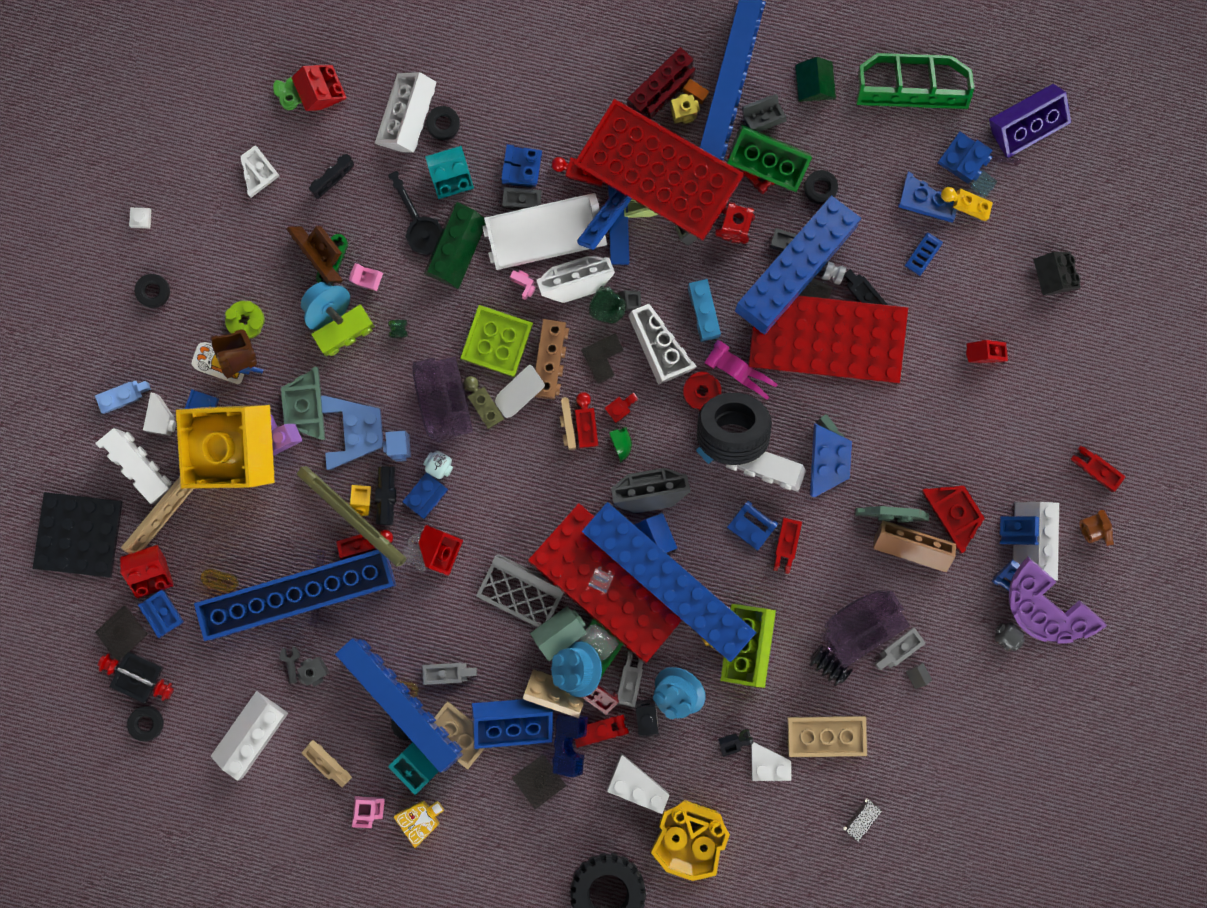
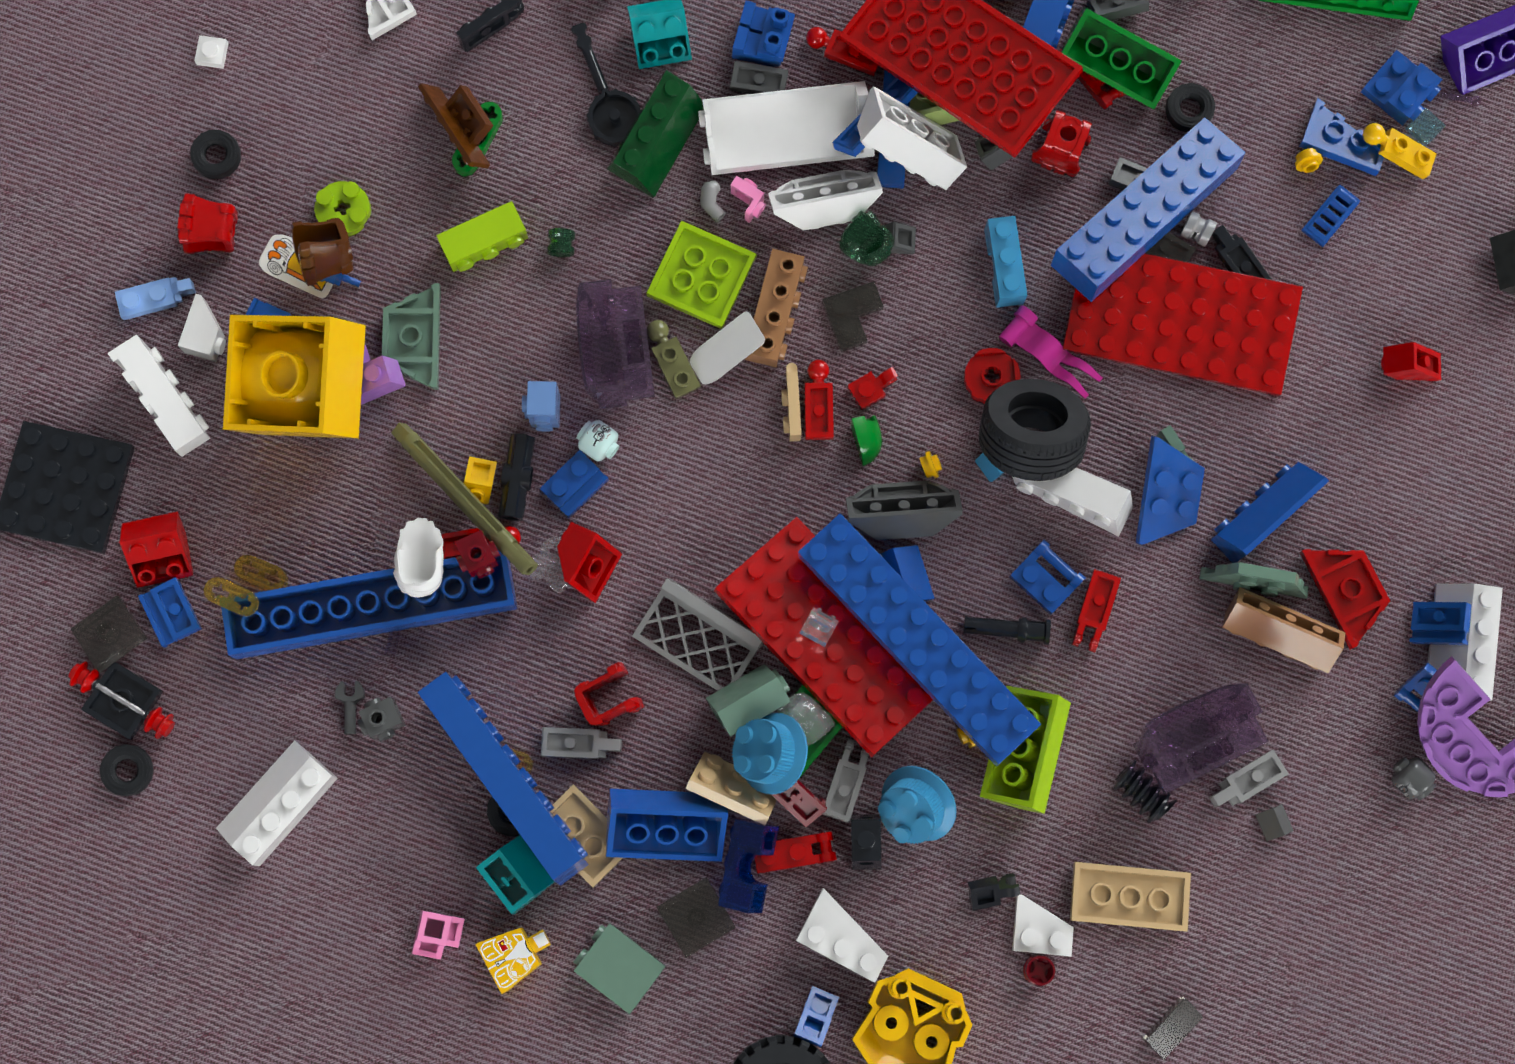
camera: 10 degrees right, 5 degrees down
(151, 343) = (206, 225): none -> red piece
(157, 518) = (184, 472): tan tile -> none
(202, 597) = (233, 590): none -> clear yellow beam
(324, 304) = (459, 195): dark azure piece -> none
(325, 563) = (419, 558): none -> white hair
(326, 764) = (384, 856): tan hinge -> none
(357, 556) = (472, 546): none -> dark red brick
(361, 430) = (492, 380): medium blue wing -> none
(365, 277) = (522, 166): bright pink bracket -> none
(452, 649) = (587, 705): none -> red piece
(490, 820) = (618, 967): none -> sand green brick
(495, 287) = (708, 200): none -> light grey arm
(625, 839) = (816, 1016): none -> slope
(630, 232) = (910, 139): none -> white slope
(659, 345) = (939, 311): white wedge -> none
(666, 457) = (930, 465): none -> yellow plate
(739, 564) = (1021, 629): none -> black pin
(772, 795) = (1043, 971): none -> dark red wheel
(897, 466) = (1268, 511): none -> blue slope
(905, 216) = (1308, 160): none -> yellow plate

